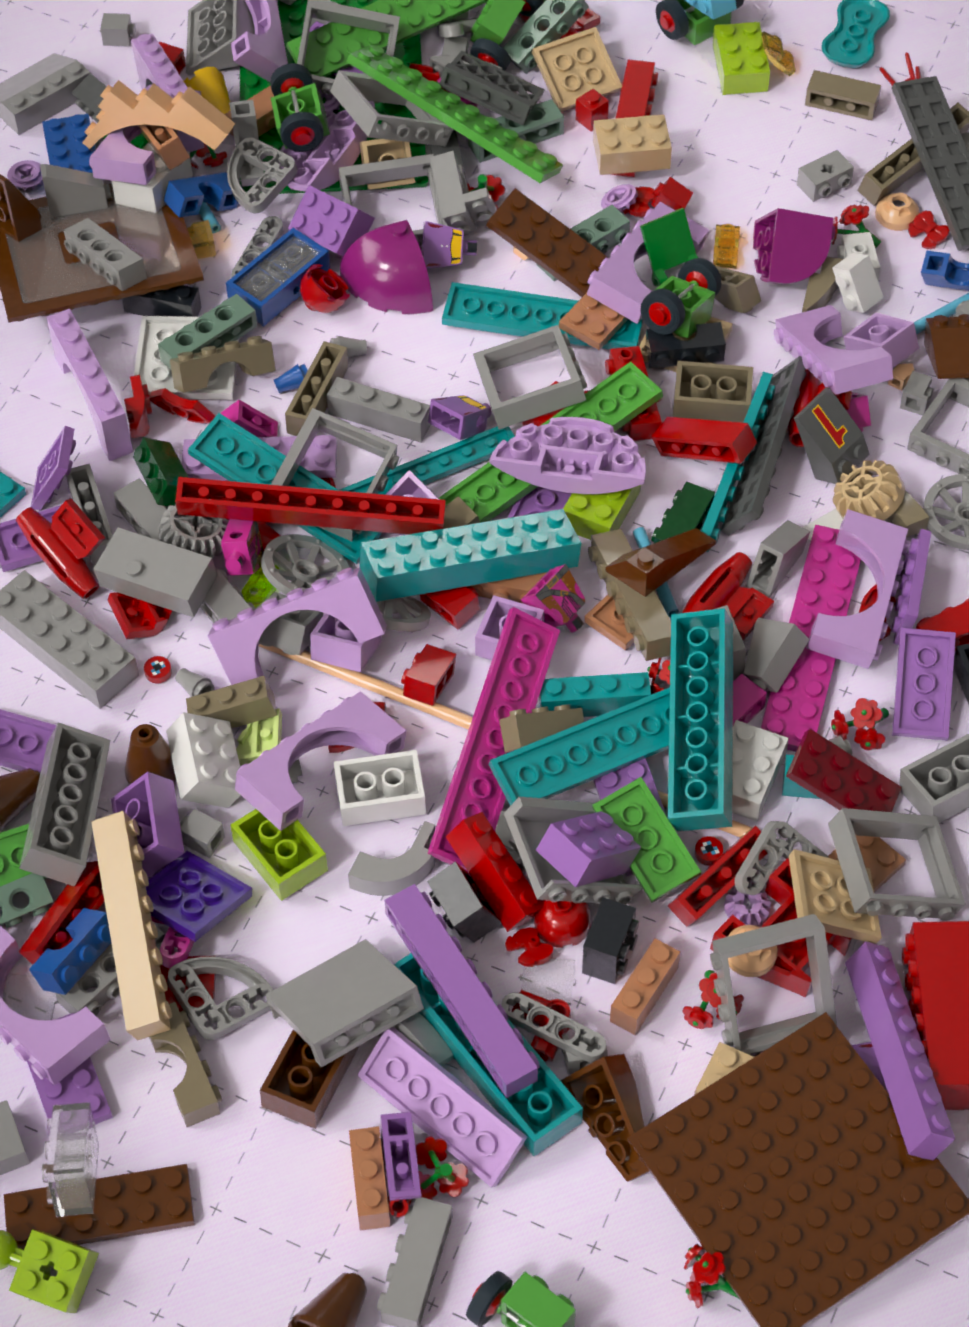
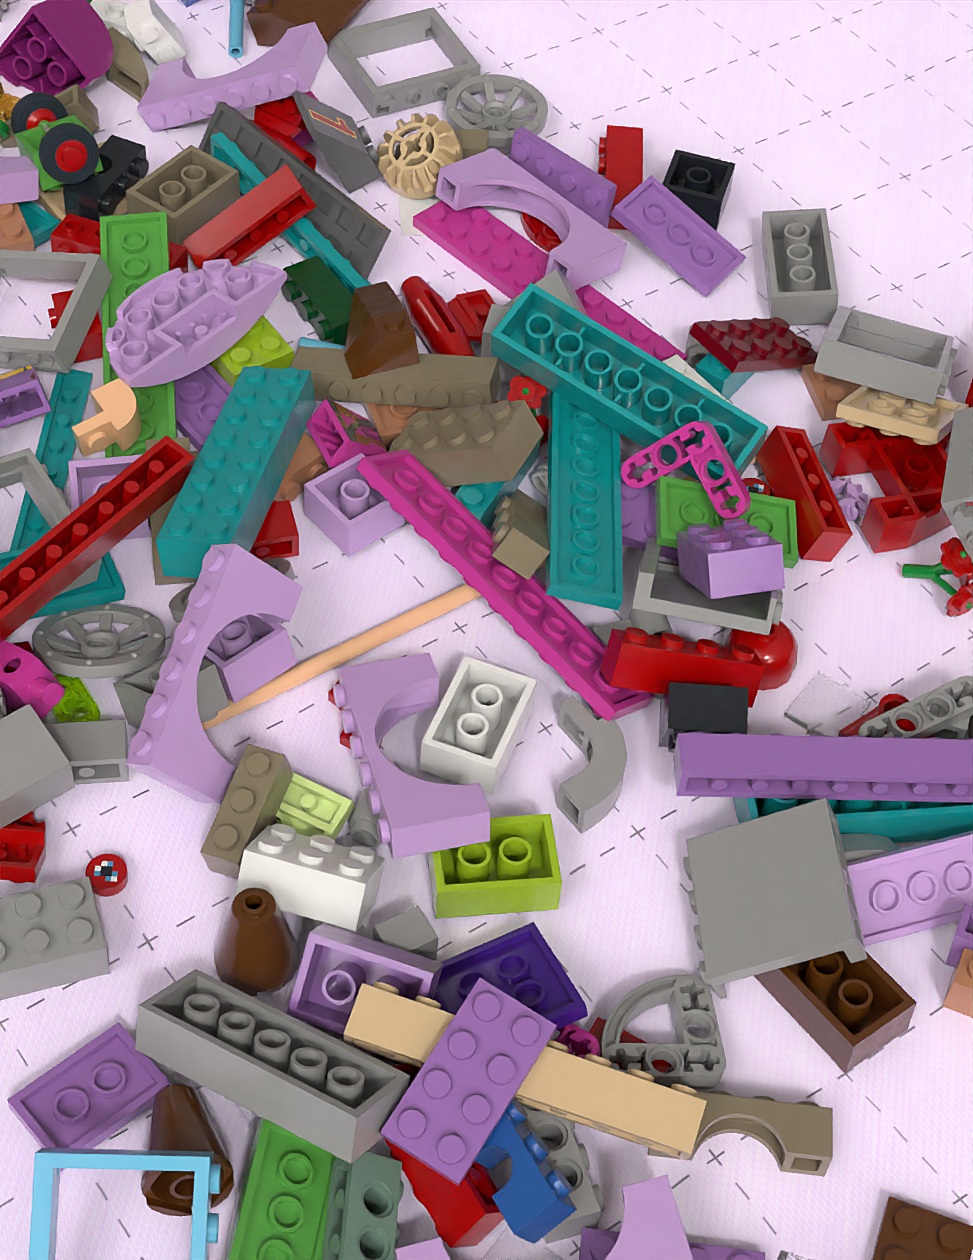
camera: 65 degrees left, 5 degrees down
(98, 895) = (468, 1081): none -> medium lavender plate
(193, 683) = (168, 843): light grey cone -> none
(428, 674) = (353, 602): red brick -> none
(473, 476) = (115, 420): none -> light nougat brick
(535, 951) = (794, 693): red piece -> none
(588, 658) = (472, 441): none -> dark tan brick
(610, 941) = (832, 618): black brick -> none
(644, 986) = (898, 624): nougat brick -> none
(668, 782) = (699, 458): none -> dark pink beam
(752, 963) = (919, 510): light nougat piece -> none
(776, 849) = (810, 422): light grey beam -> none
(777, 557) = (435, 256): light grey slope -> none
(864, 715) = (691, 287): red plant -> none
(890, 333) = (238, 45): lavender brick -> none
(917, 393) = (328, 78): light grey brick -> none

